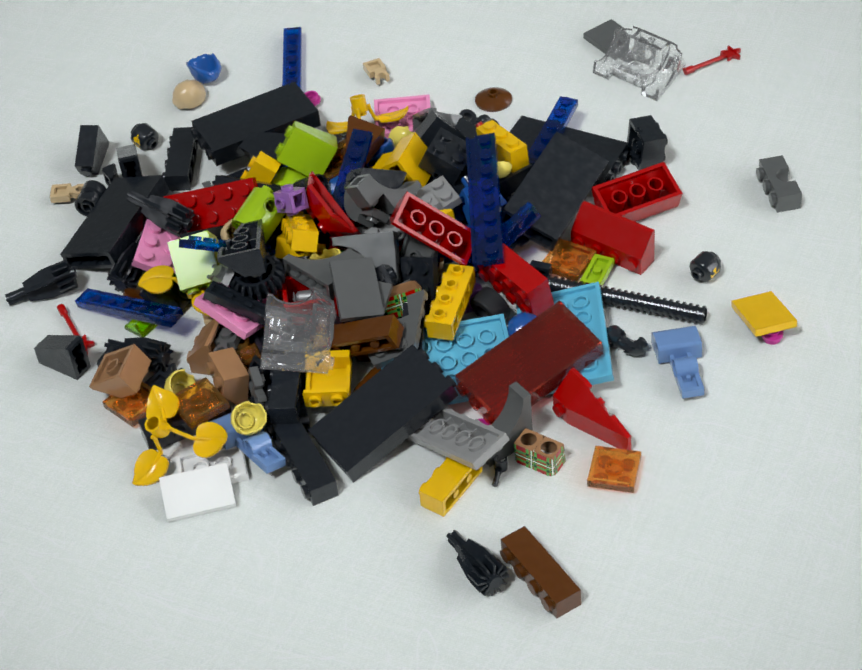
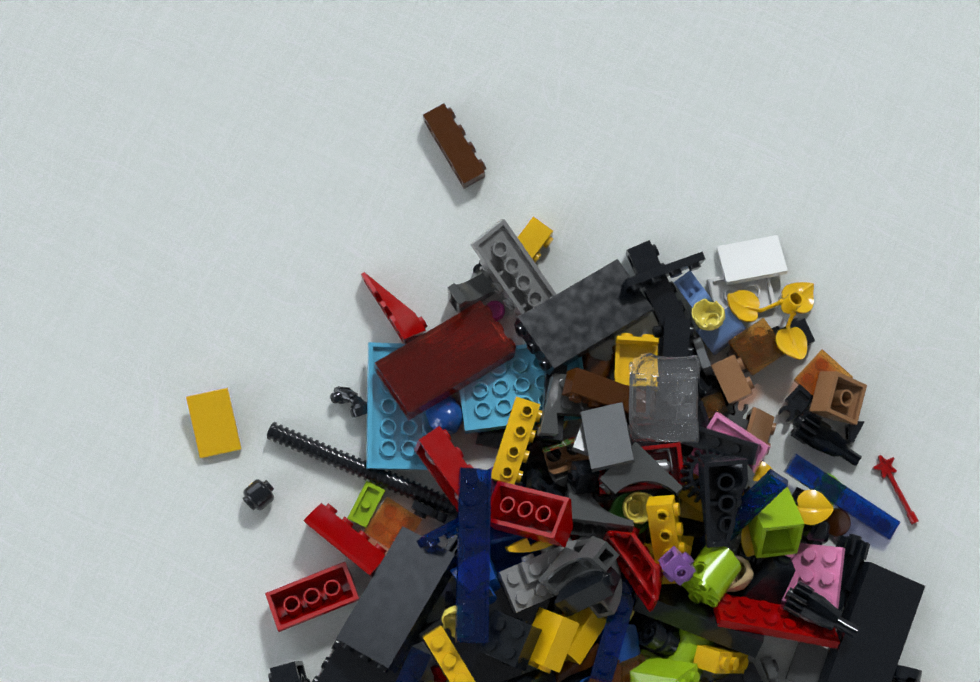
camera: 175 degrees right, 35 degrees up
(46, 283) = (922, 552): black piece -> none
(63, 354) = (902, 442): black slope -> none
(178, 381) = (779, 386): light yellow hair -> none
(295, 454) = (656, 275): none -> black plate
(478, 564) = (506, 157): black piece -> none
(489, 303) = (477, 454): black tyre -> none
(539, 461) = (447, 266): piece -> none
(614, 469) = (379, 250): clear orange plate -> none
(681, 349) = (302, 392): medium blue plate -> none
(782, 193) = (165, 633): dark grey arch -> none

